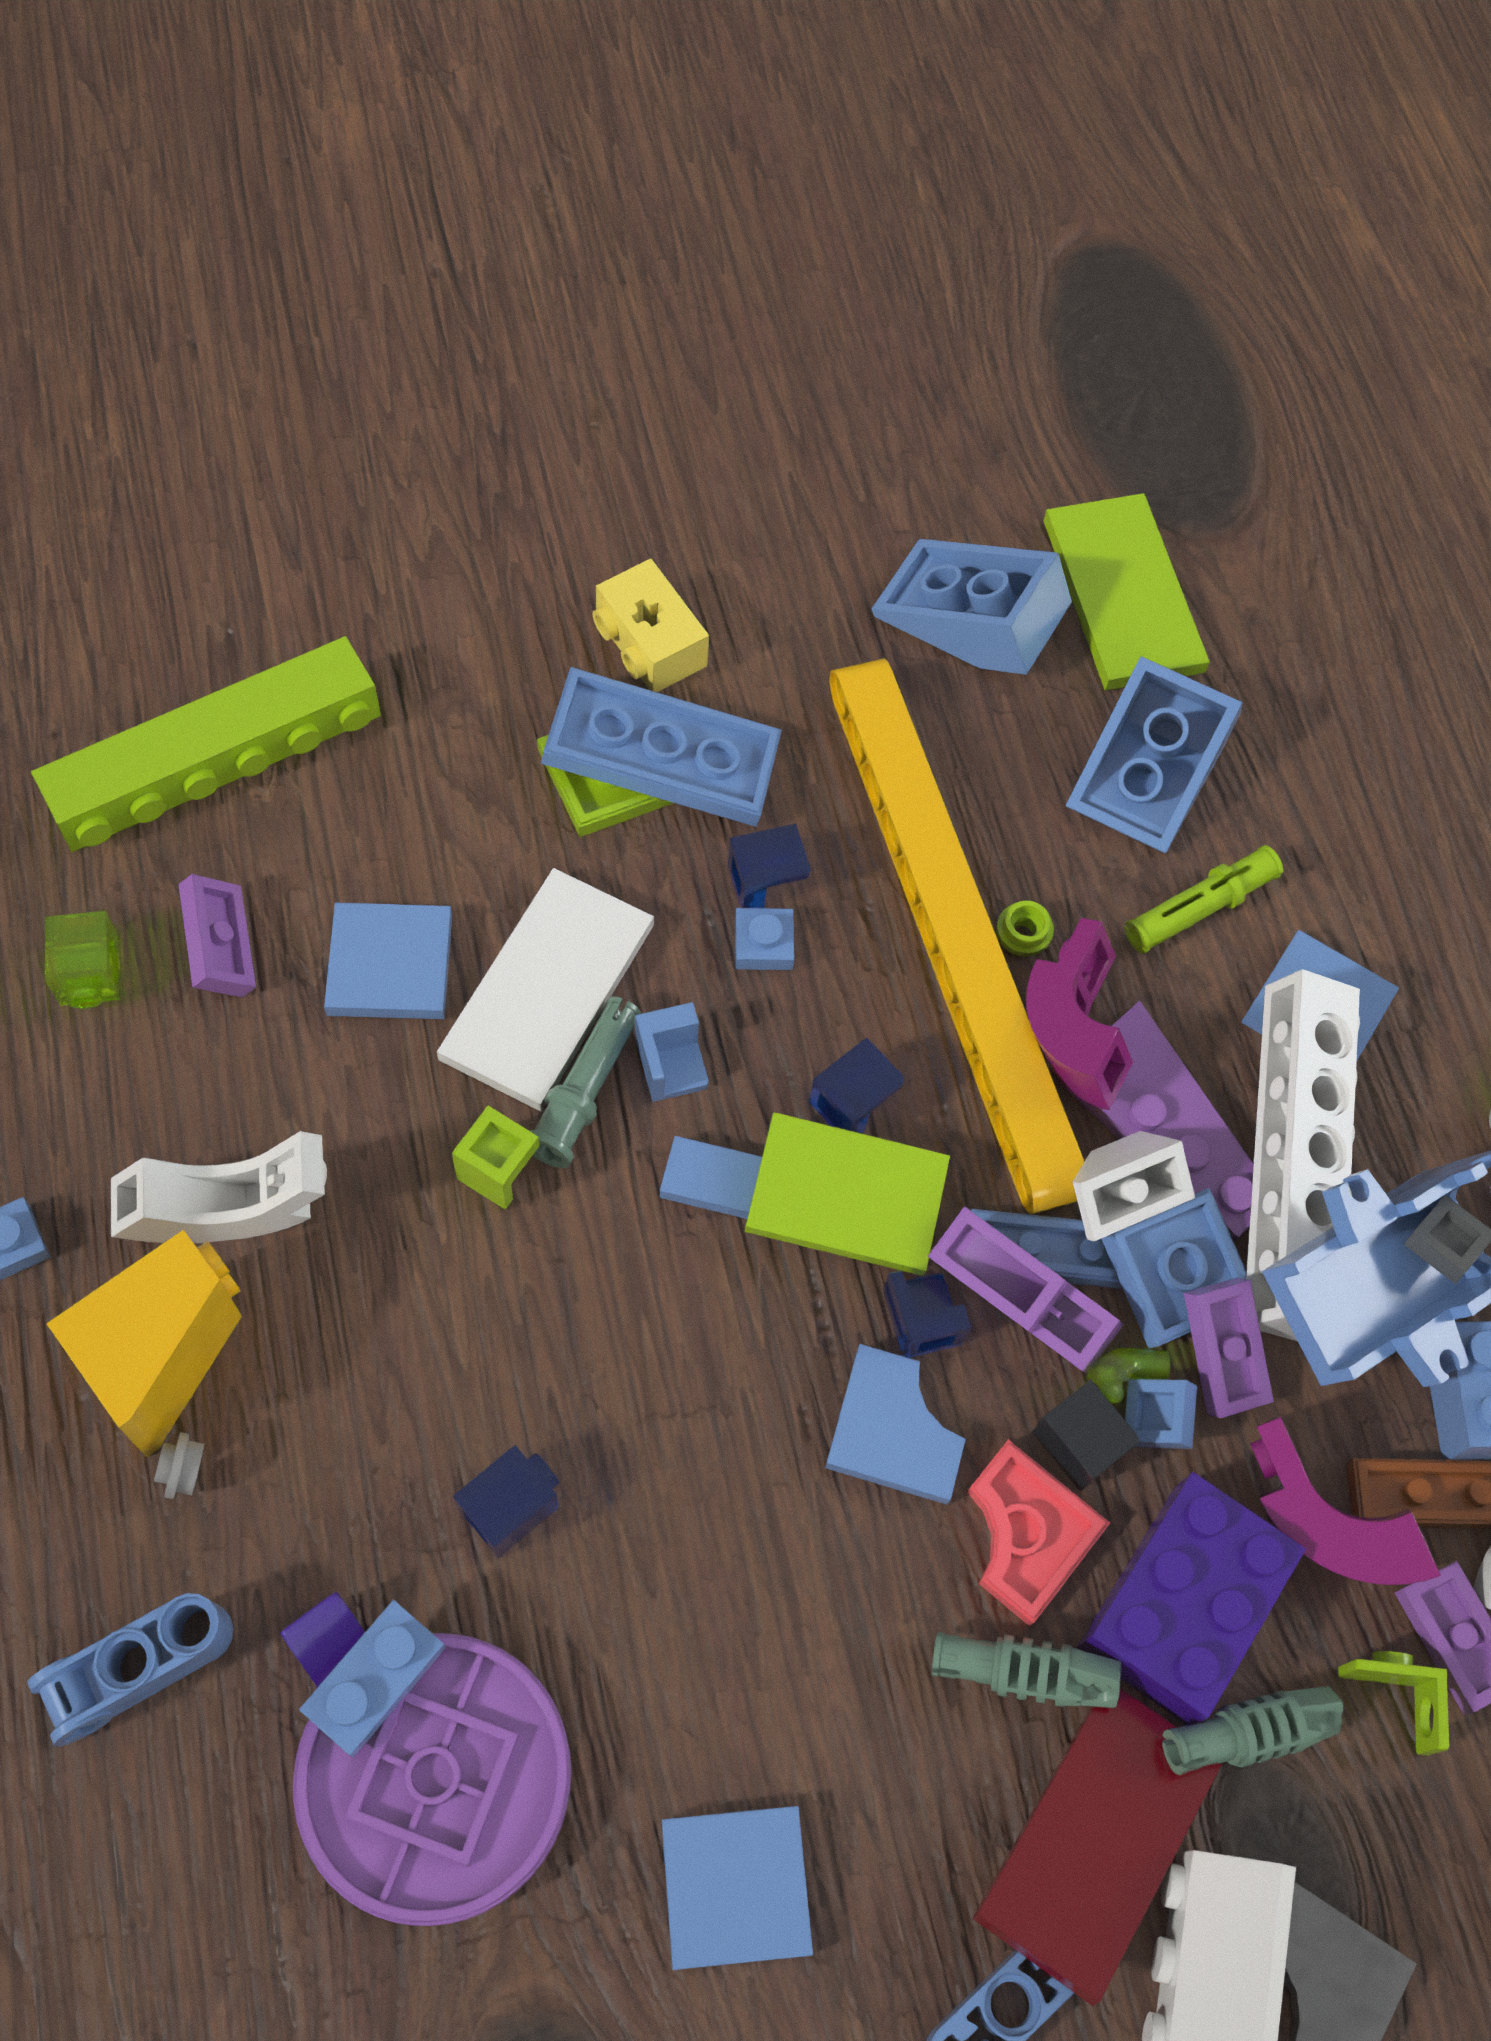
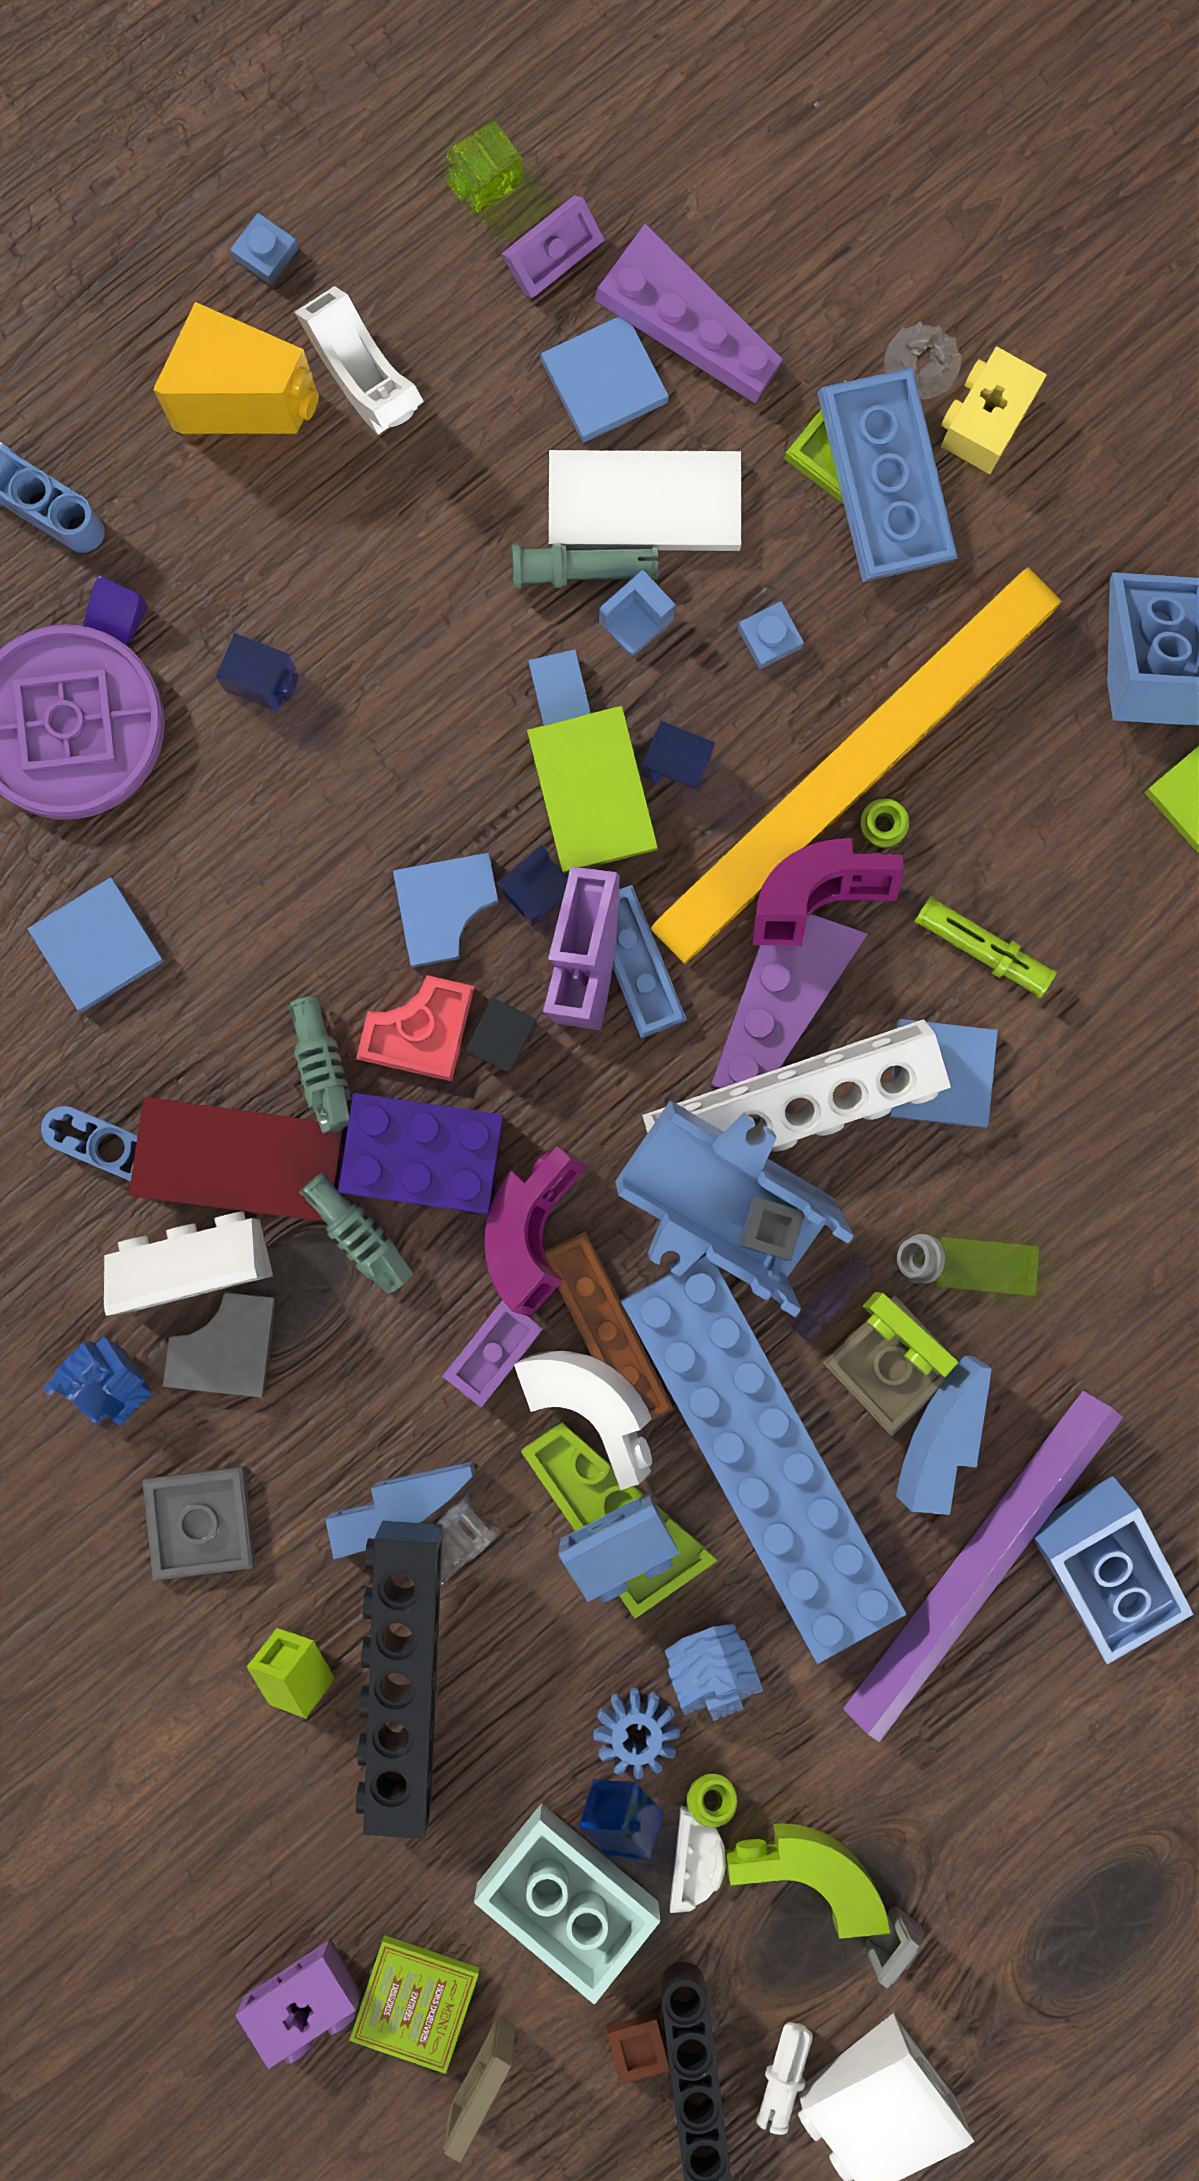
camera: 65 degrees right, 20 degrees up
(179, 1466) = (172, 451): light grey plate -> none
(207, 744) = (703, 147): lime brick -> none
(362, 852) = (679, 310): none -> medium lavender wing
(372, 1678) = (99, 648): medium blue plate -> none
(493, 1155) = (487, 529): lime panel -> none
(533, 661) = (934, 378): none -> clear gear
(766, 861) = (826, 602): clear blue panel -> none
(1128, 1364) = (568, 1040): clear neon green arm -> none
(1131, 1182) = (697, 980): white slope -> none
(1154, 754) = (1095, 853): medium blue slope -> none
(1161, 1412) = (545, 1082): medium blue plate -> none
(1169, 1257) = (662, 1049): medium blue tile -> none
(1228, 1347) = (616, 1108): medium lavender plate -> none
(1429, 1689) = (447, 1315): lime bracket -> none

